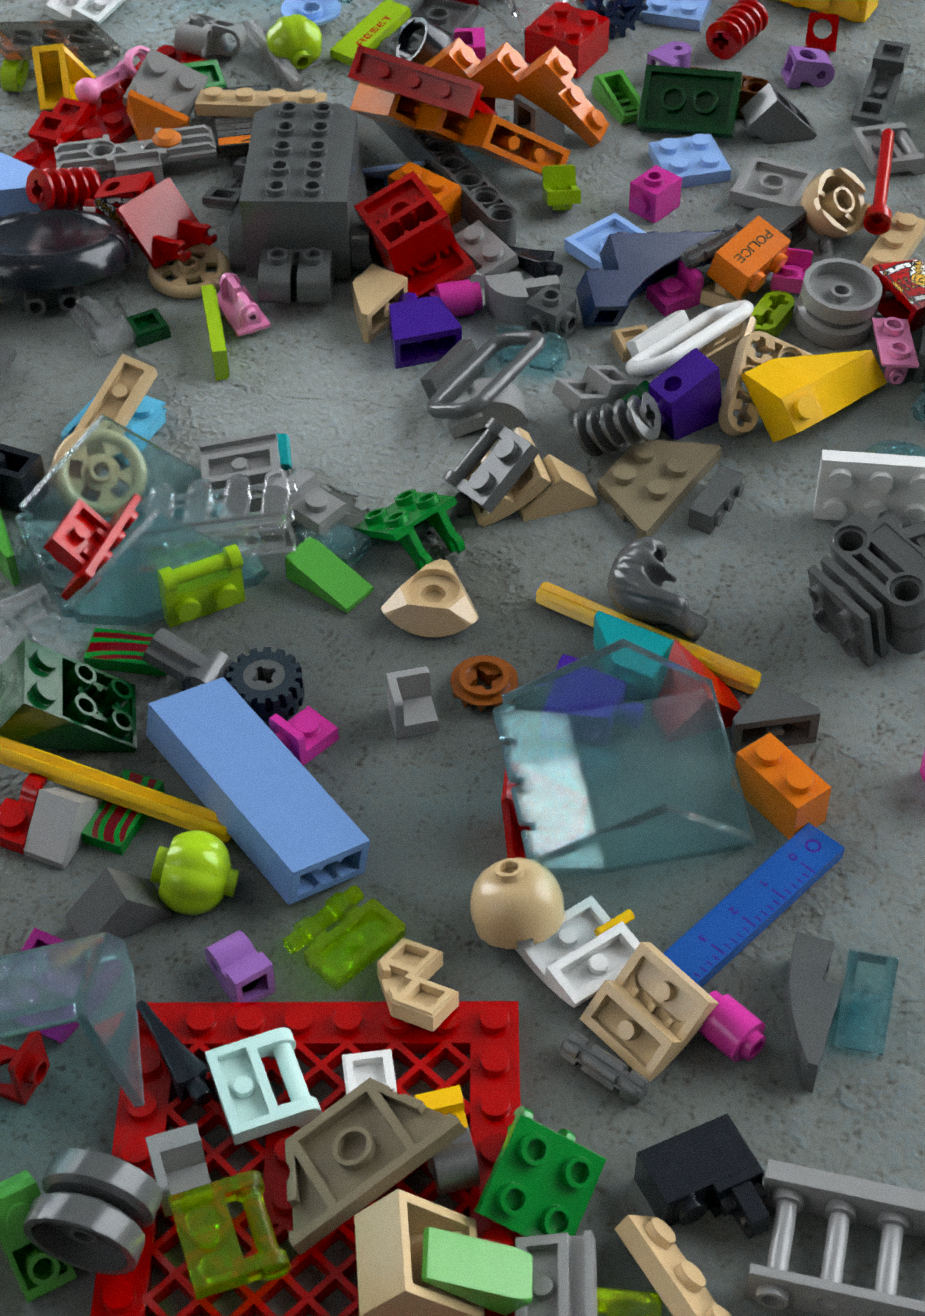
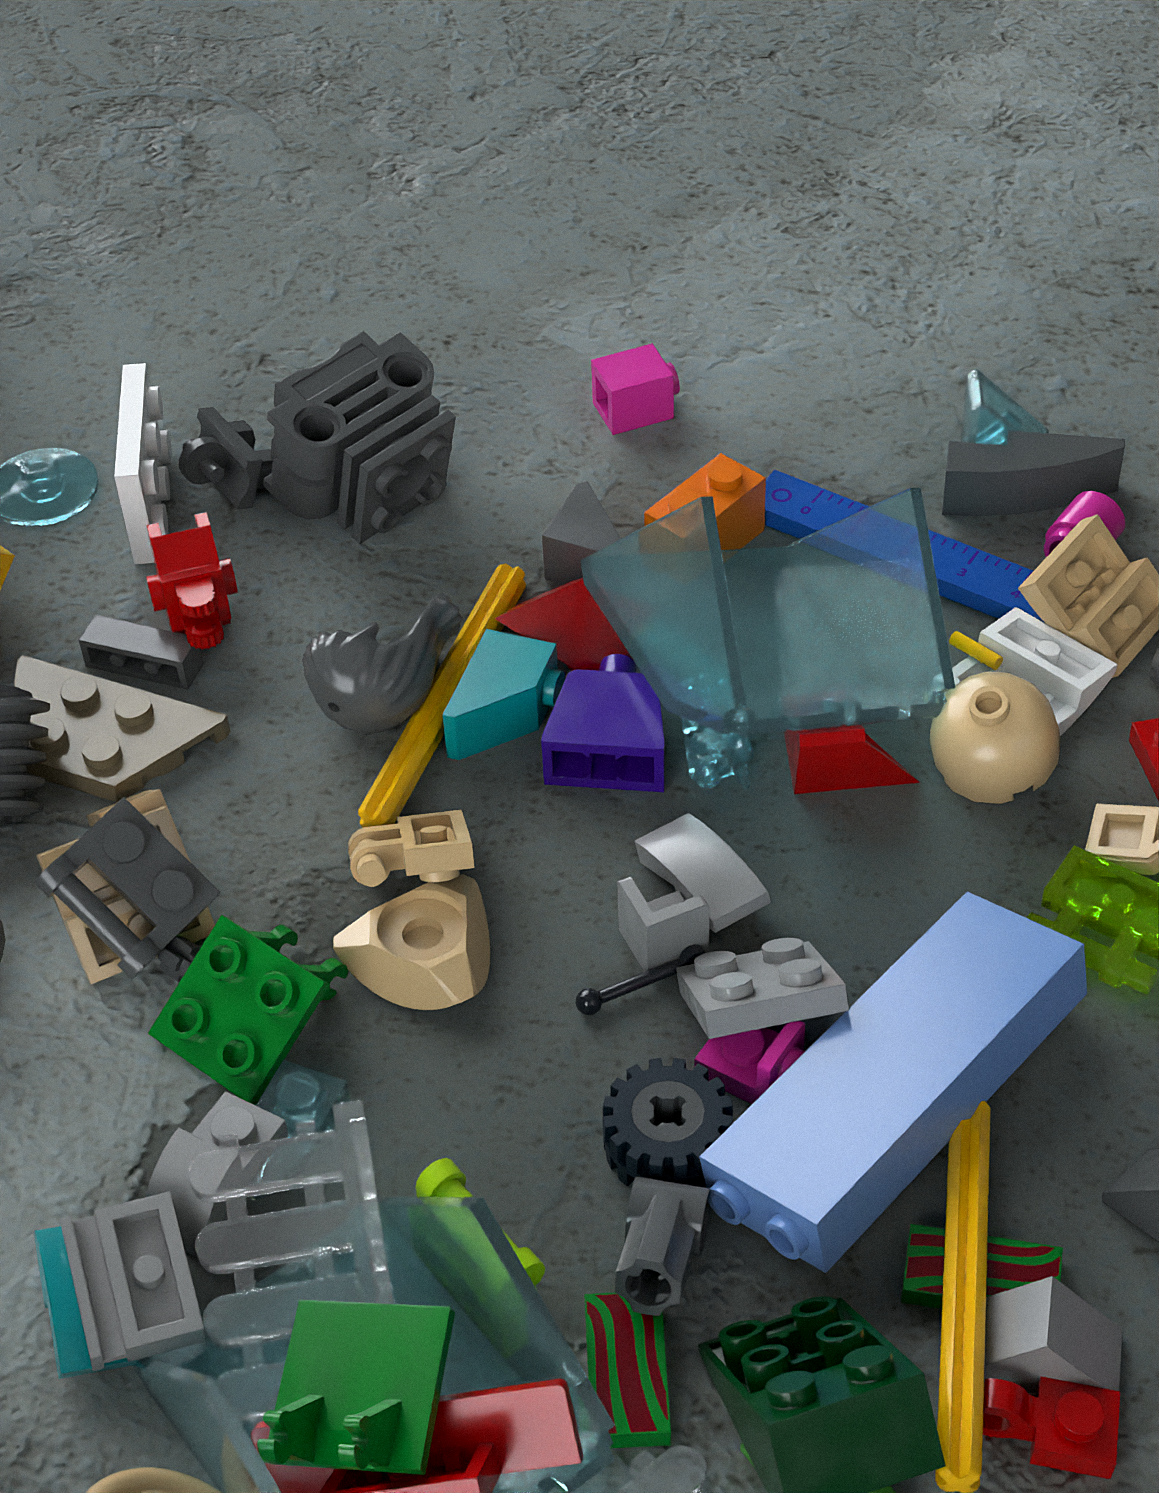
camera: 100 degrees left, 0 degrees up
(117, 508) = (360, 1387): none -> green plate
(194, 873) = (1095, 1108): lime plant -> none
(326, 575) = (396, 1099): bright green slope -> none
(337, 733) = (760, 988): none -> light grey plate
(373, 673) = (590, 1001): none -> black hinge
(444, 734) = (703, 865): none -> light grey slope
(489, 669) = (587, 835): dark orange gear -> none
(497, 593) = (421, 844): none -> tan plate
(744, 503) = (191, 582): none -> red hinge

